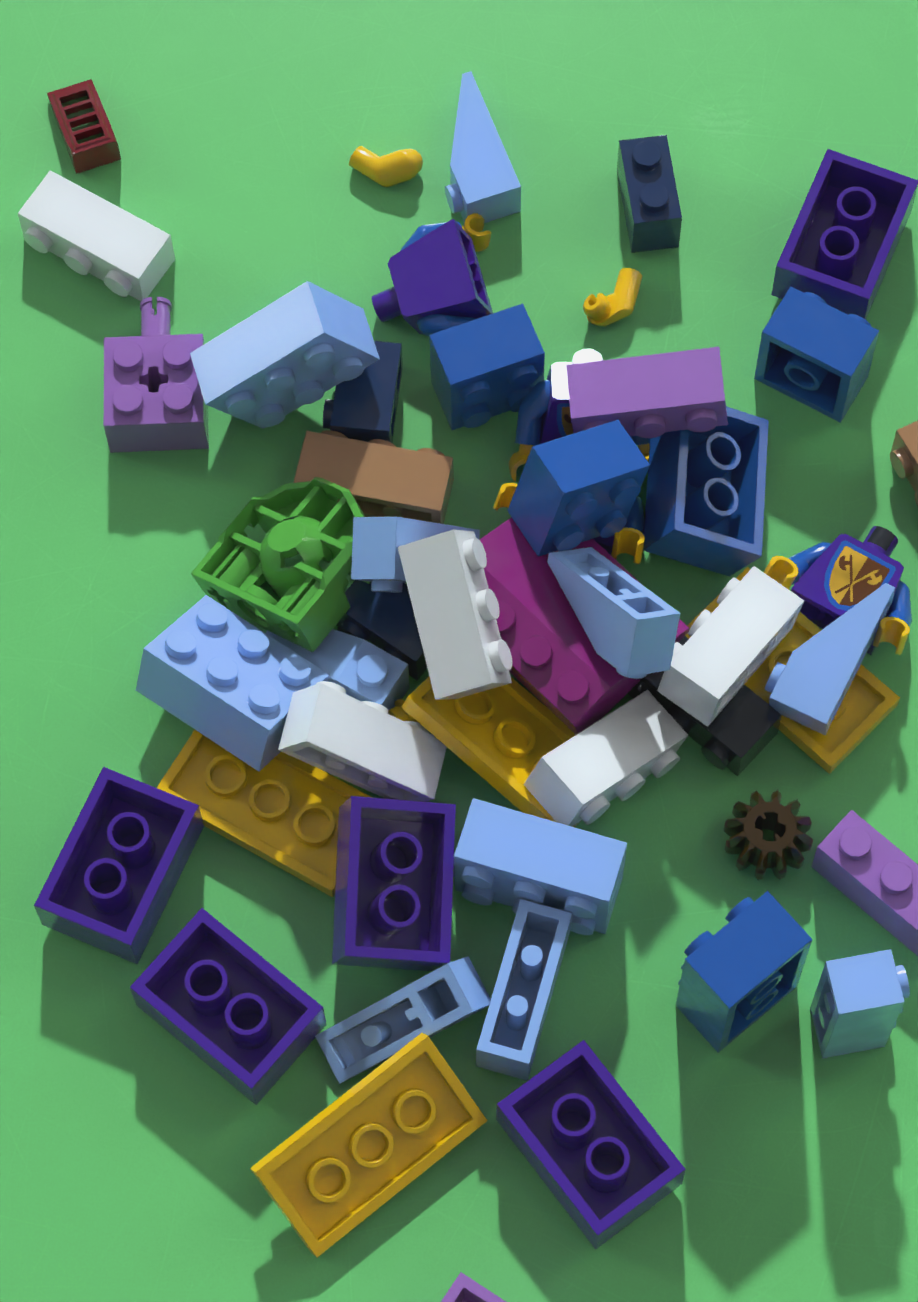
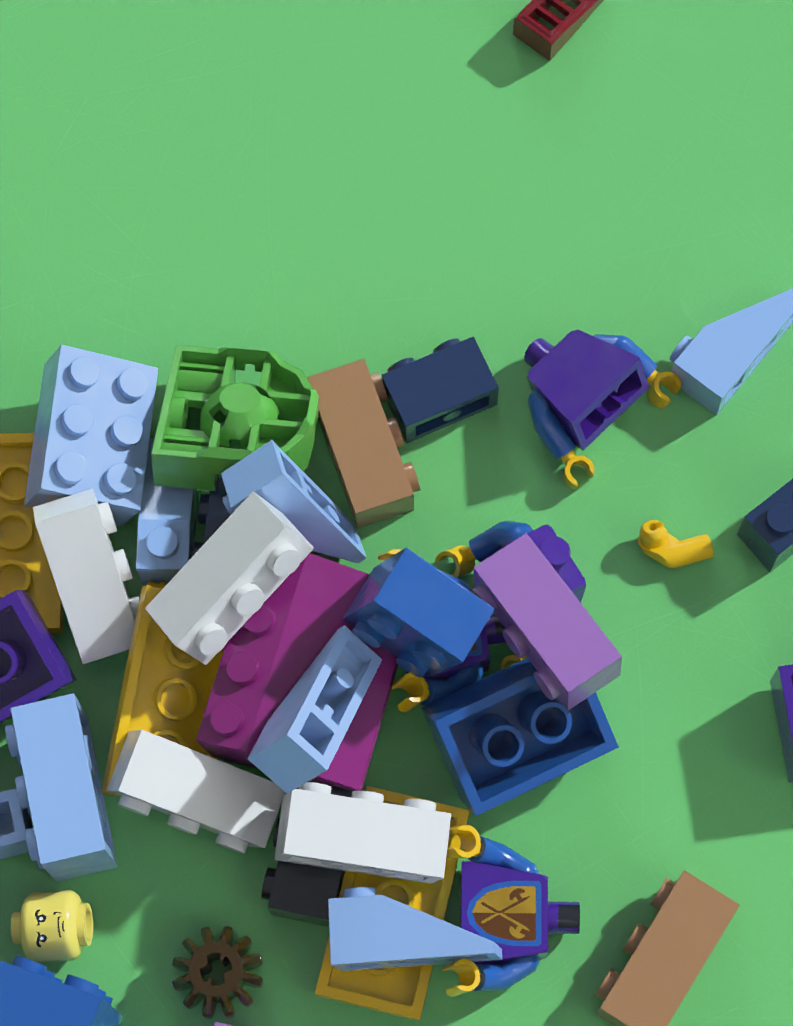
camera: 60 degrees right, 5 degrees up
(96, 237) = (451, 84): white brick -> none
(153, 387) = (340, 214): medium lavender brick -> none
(285, 356) = (411, 297): light blue brick -> none
(387, 169) = (680, 280): yellow arm -> none
(485, 366) = (518, 470): blue brick -> none
(650, 945) = (52, 926): none -> light yellow head
(816, 353) = (718, 752): blue brick -> none

